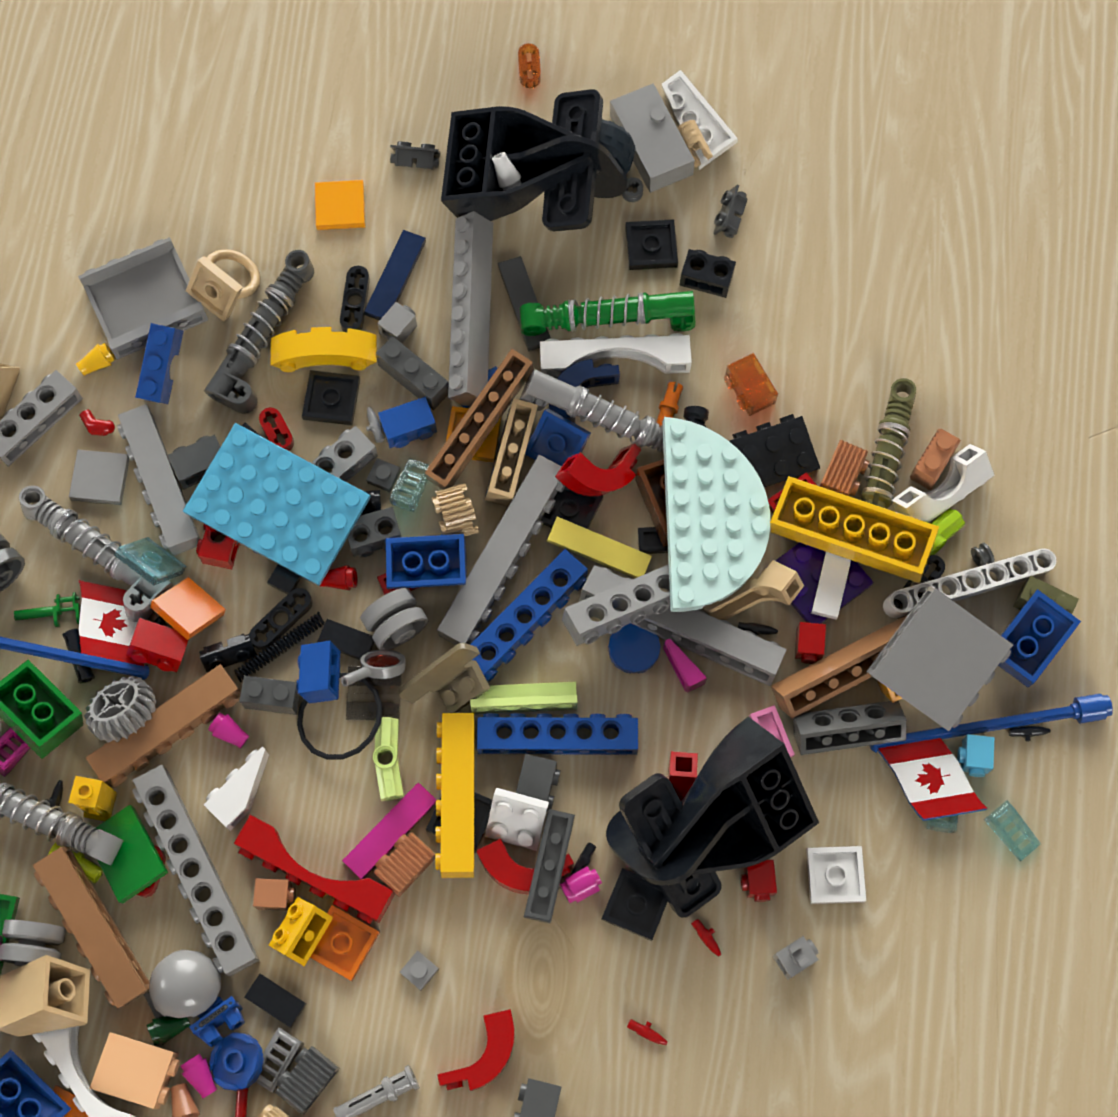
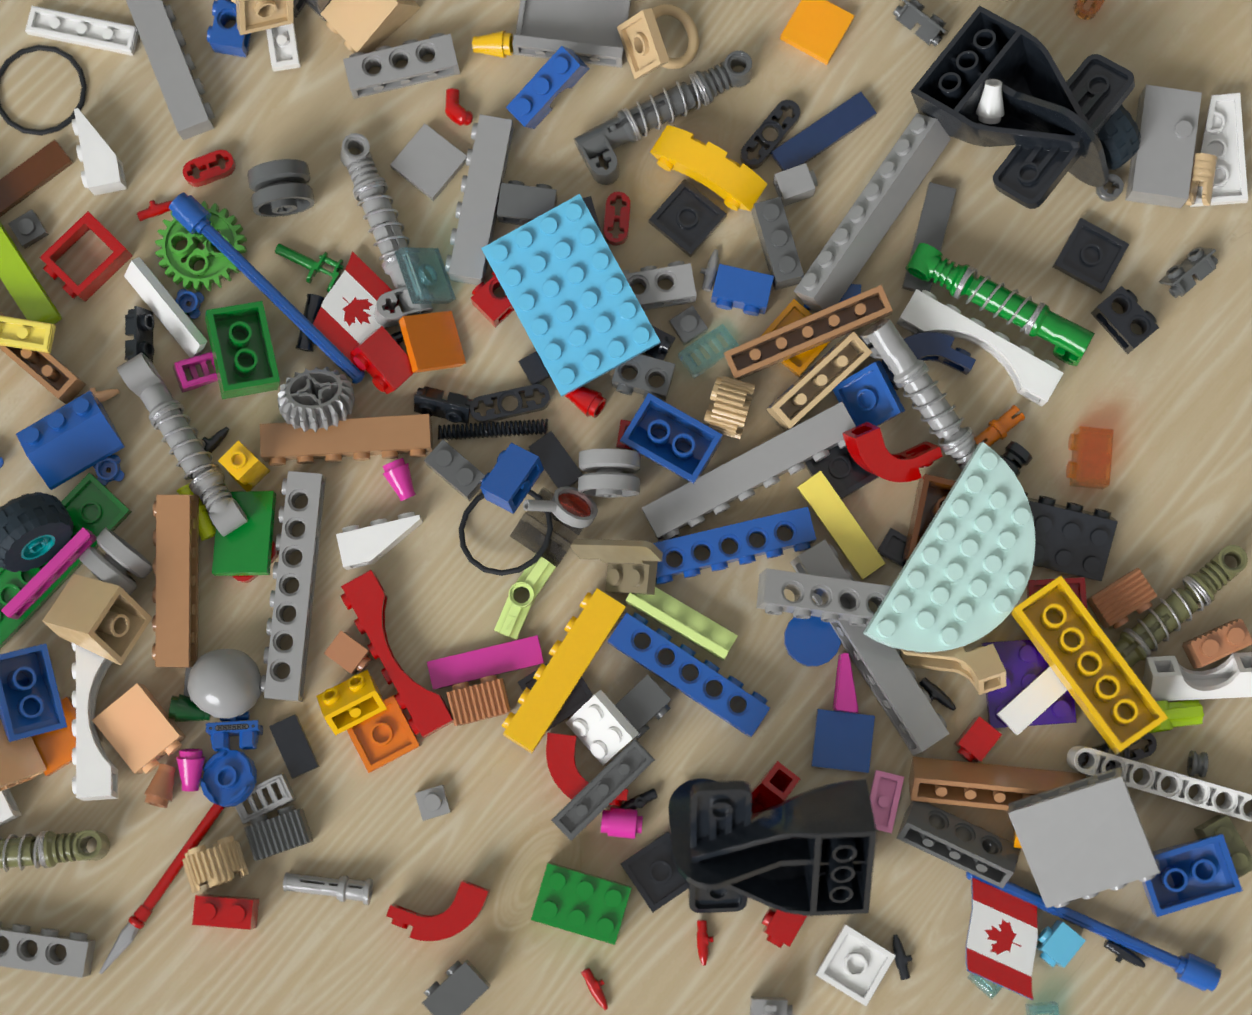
camera: 35 degrees right, 10 degrees up
(591, 969) = (581, 903): none -> green brick
(709, 710) = (843, 741): none -> blue tile
(867, 847) = (901, 958): none -> black helmet

